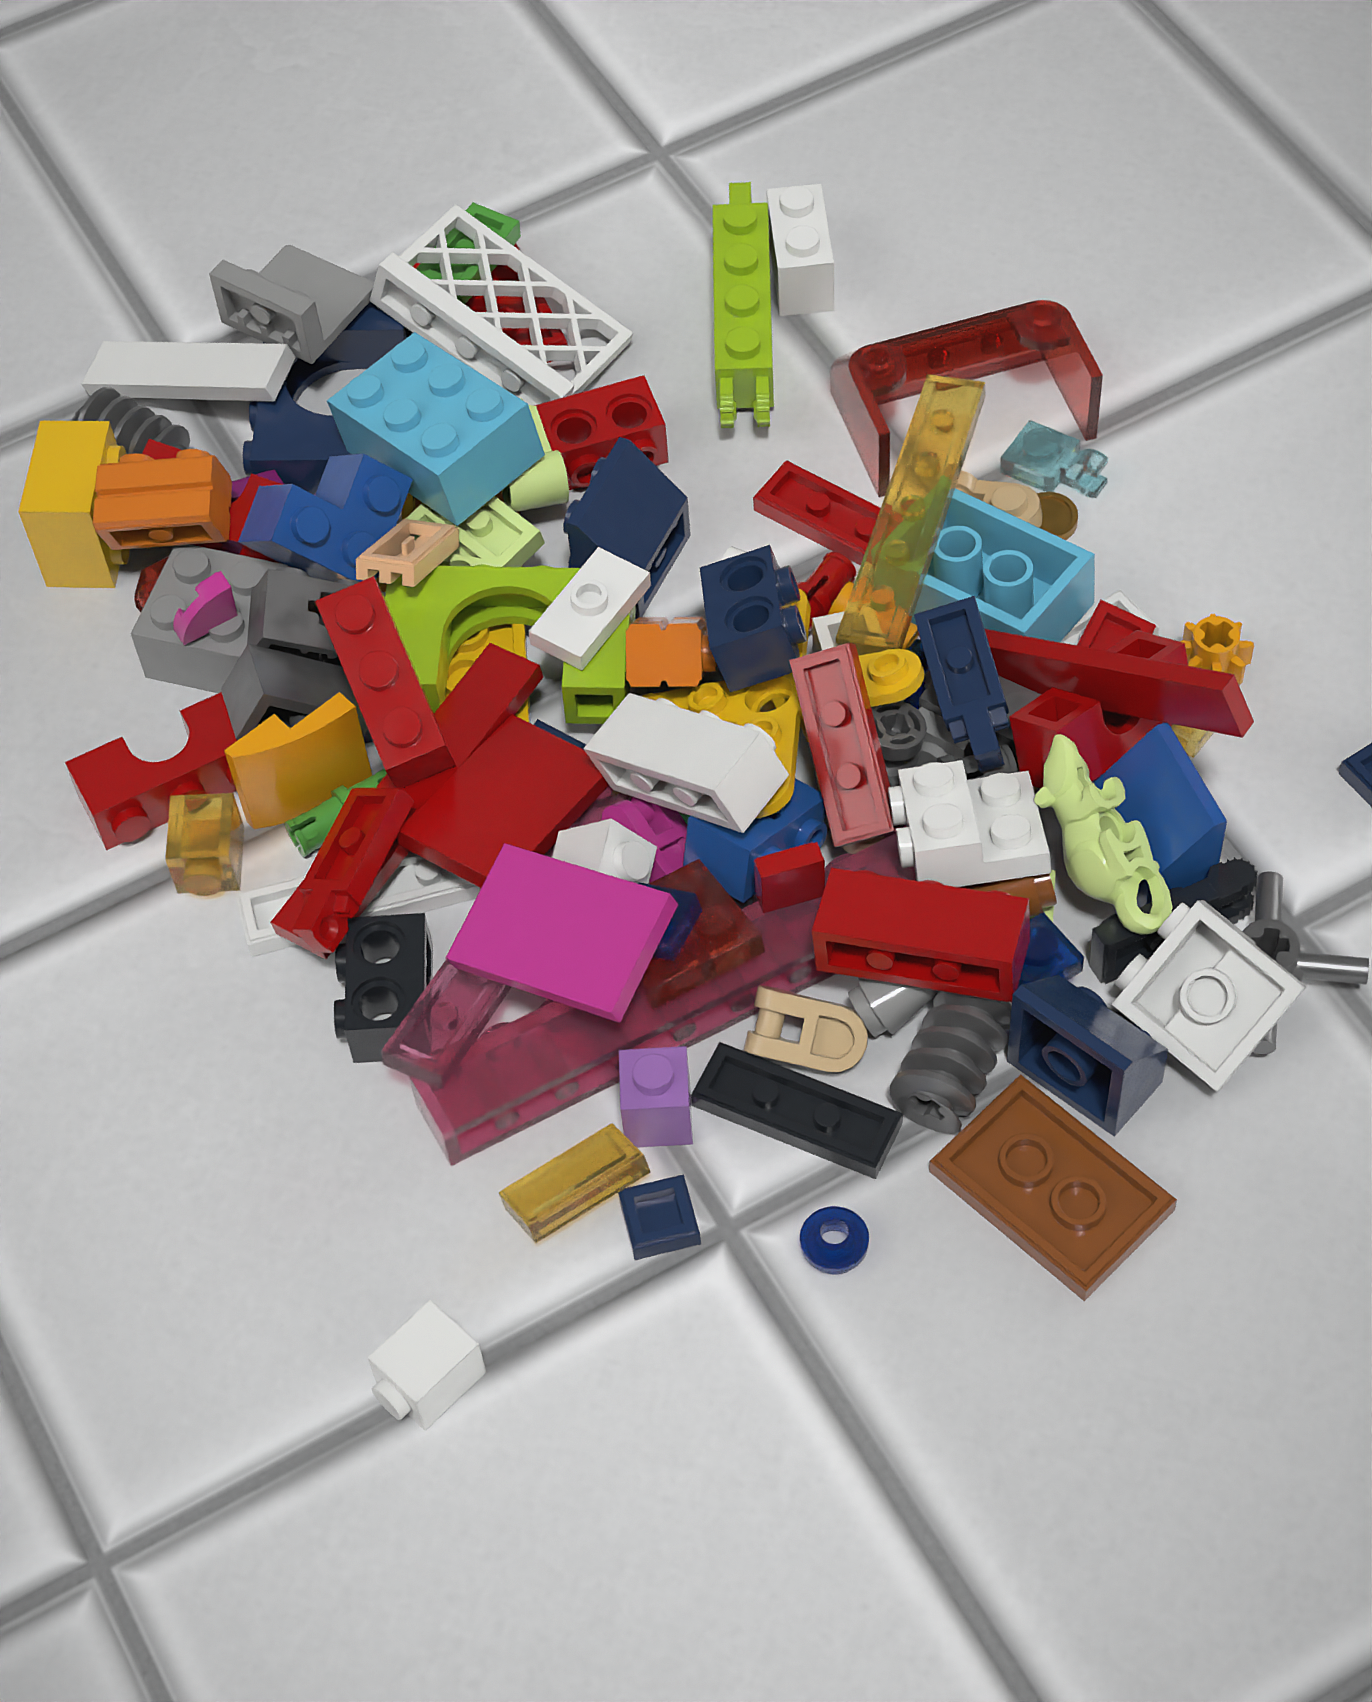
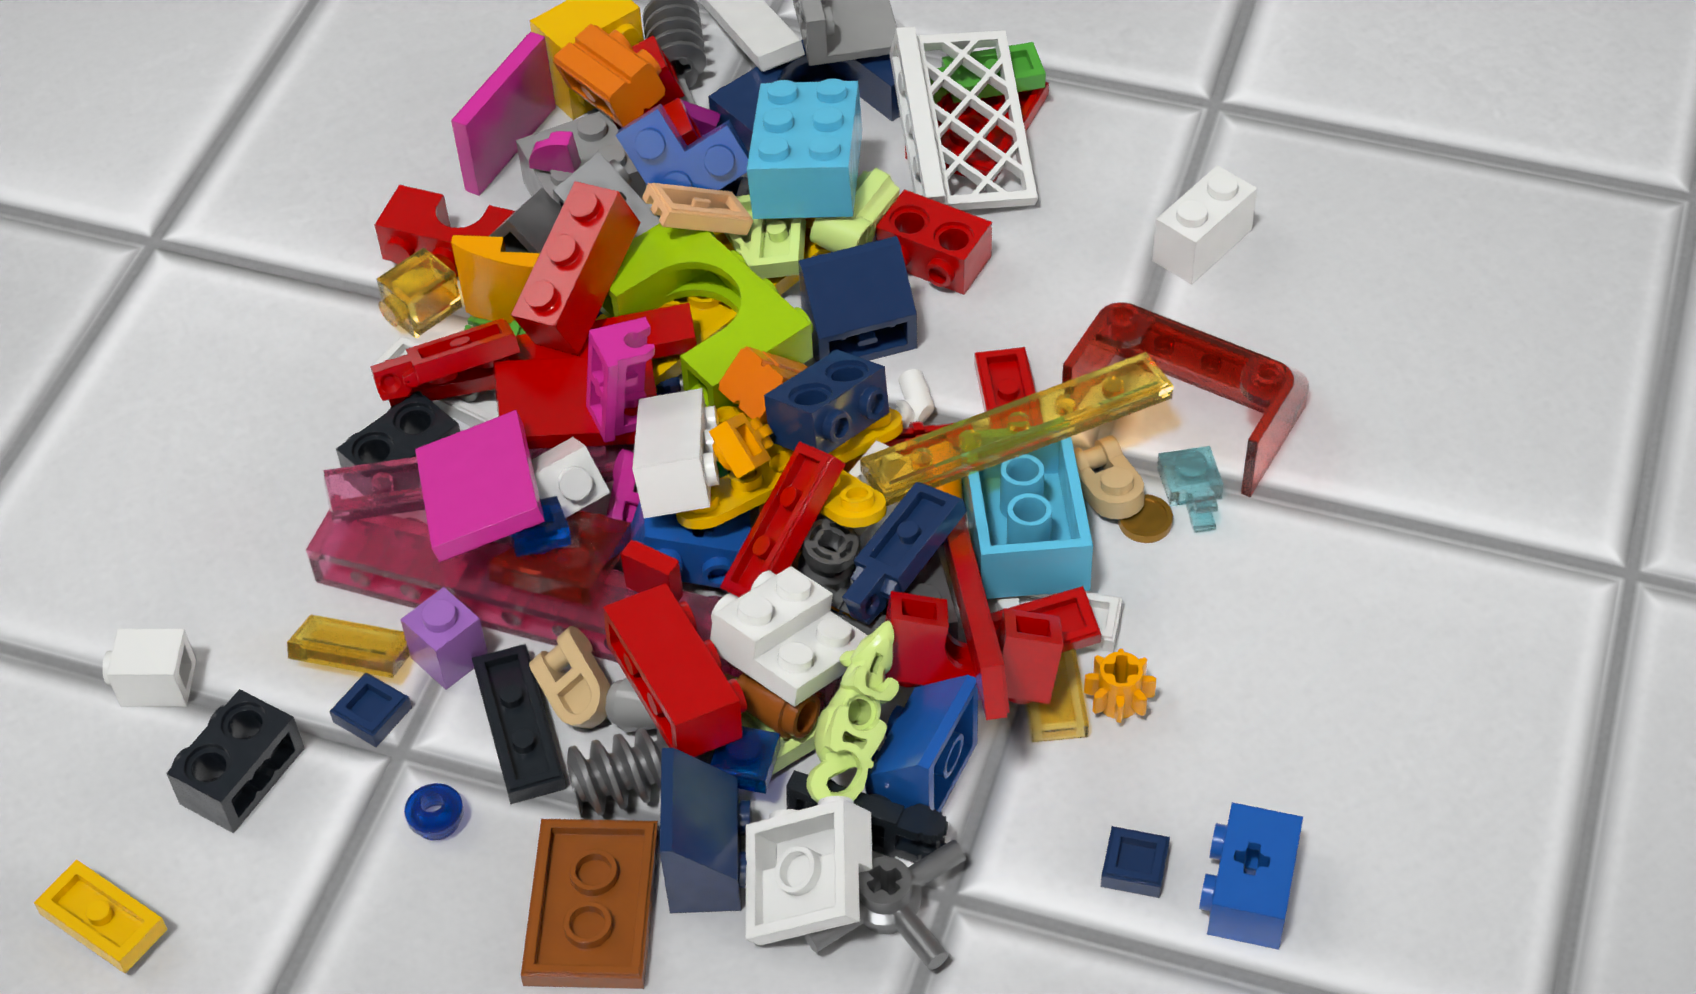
camera: 45 degrees right, 5 degrees down
(75, 621) = (503, 111): none -> dark pink tile
(557, 742) = (617, 374): none -> dark pink hinge
(589, 608) = (749, 322): white plate -> none
(625, 1361) = (243, 765): none -> black brick
(682, 1600) = (100, 916): none -> yellow plate
(742, 307) = (1108, 236): lime hinge -> none
(742, 705) = (741, 444): none -> light orange plate

